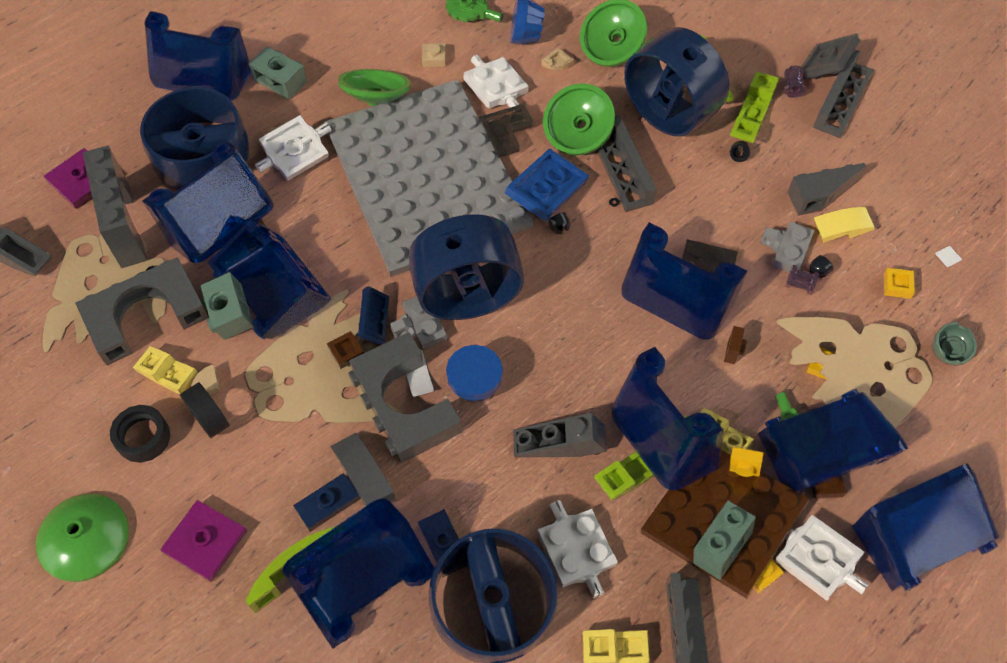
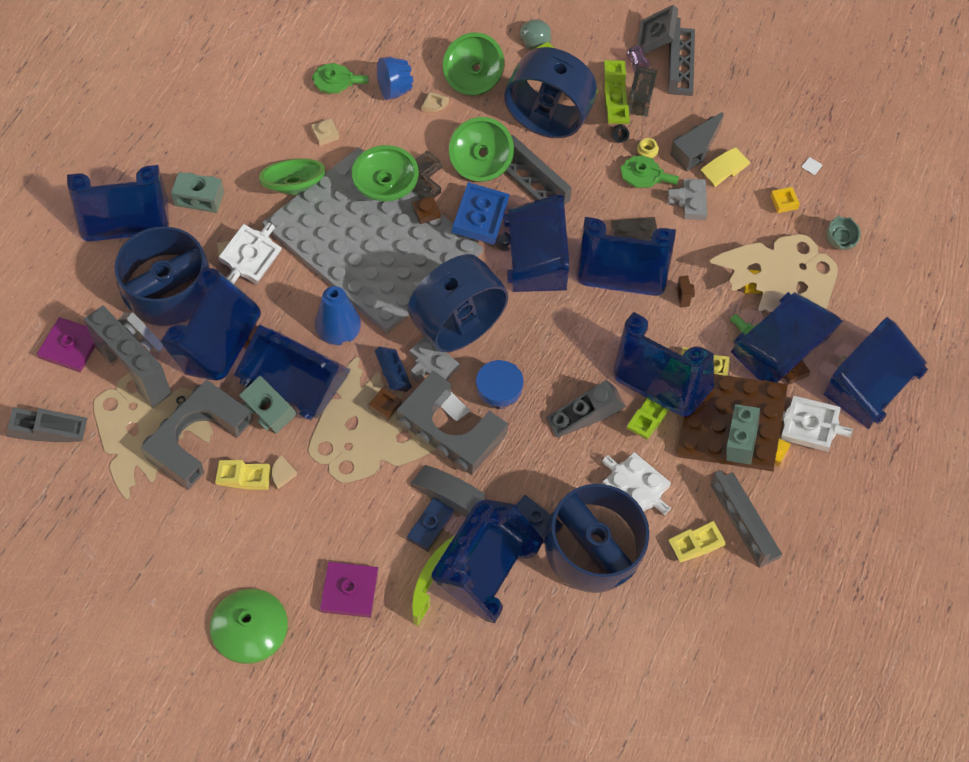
camera: 25 degrees left, 0 degrees up
(128, 418) = (247, 513): black tyre -> none
(137, 184) = (141, 332): none -> light grey hinge
(204, 410) = (299, 491): black tyre -> none
(343, 240) = (337, 317): none -> blue cone
(463, 110) = (385, 173): none -> bright green dish
(491, 162) = (426, 210): none -> reddish brown plate
(495, 82) = (393, 133): white plate -> none
(590, 239) = (538, 246): none -> clear blue windscreen
(697, 21) = (535, 33): none -> sand green hair
(746, 462) = (733, 374): yellow plate -> none
(748, 201) = (645, 173): none -> bright green piece
(763, 176) = (649, 144): none -> light yellow plate
(782, 113) = (642, 91): none -> clear smoke slope
(802, 279) = (713, 222): bush -> none
(822, 266) = (722, 207): black hinge -> none

